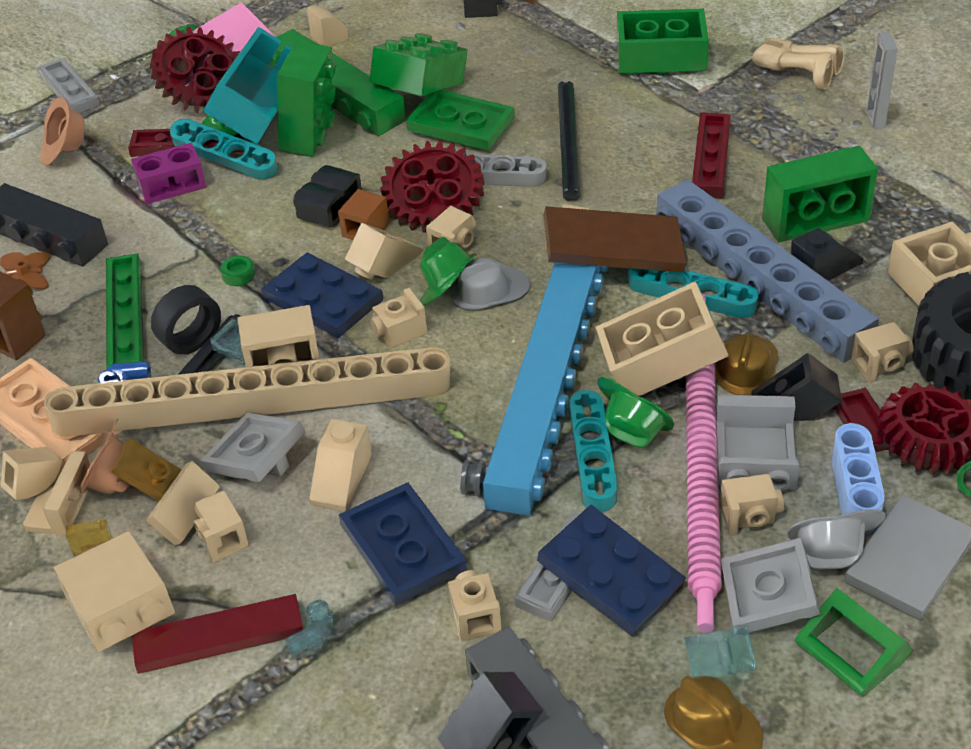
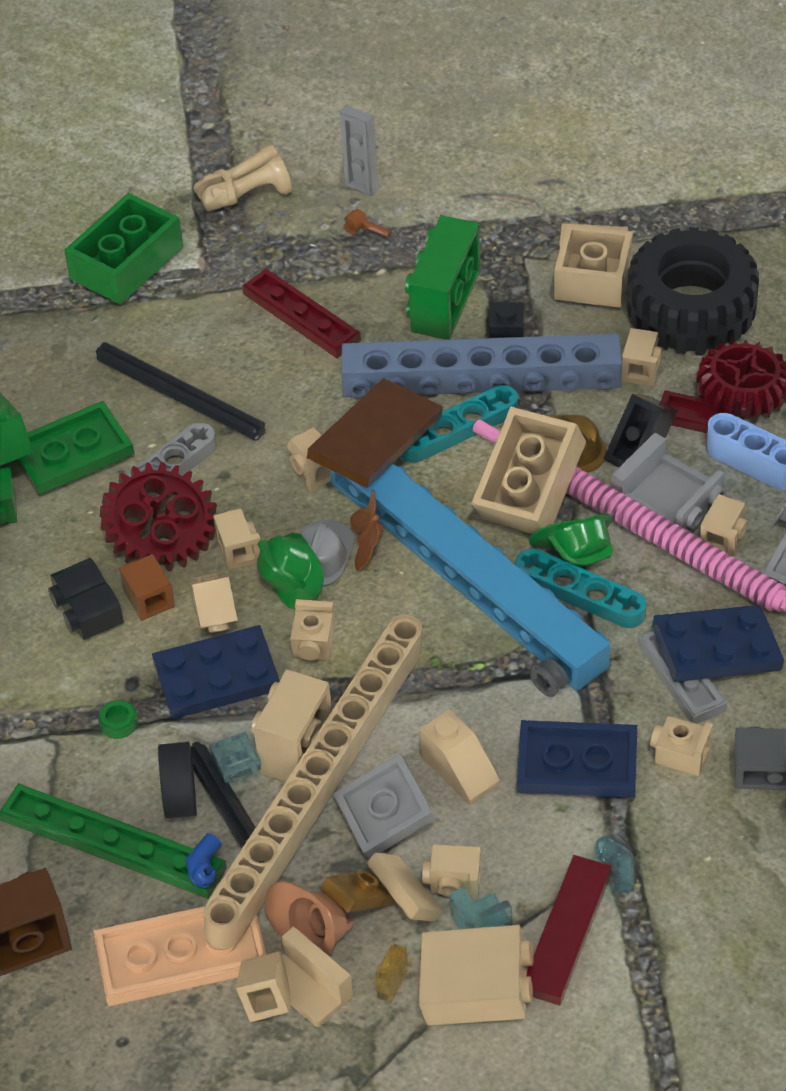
camera: 55 degrees left, 5 degrees up
(185, 566) = (479, 913): none -> clear light blue panel
(526, 294) = (366, 523): none -> dark orange piece
(833, 131) = (357, 219): none -> dark orange hand

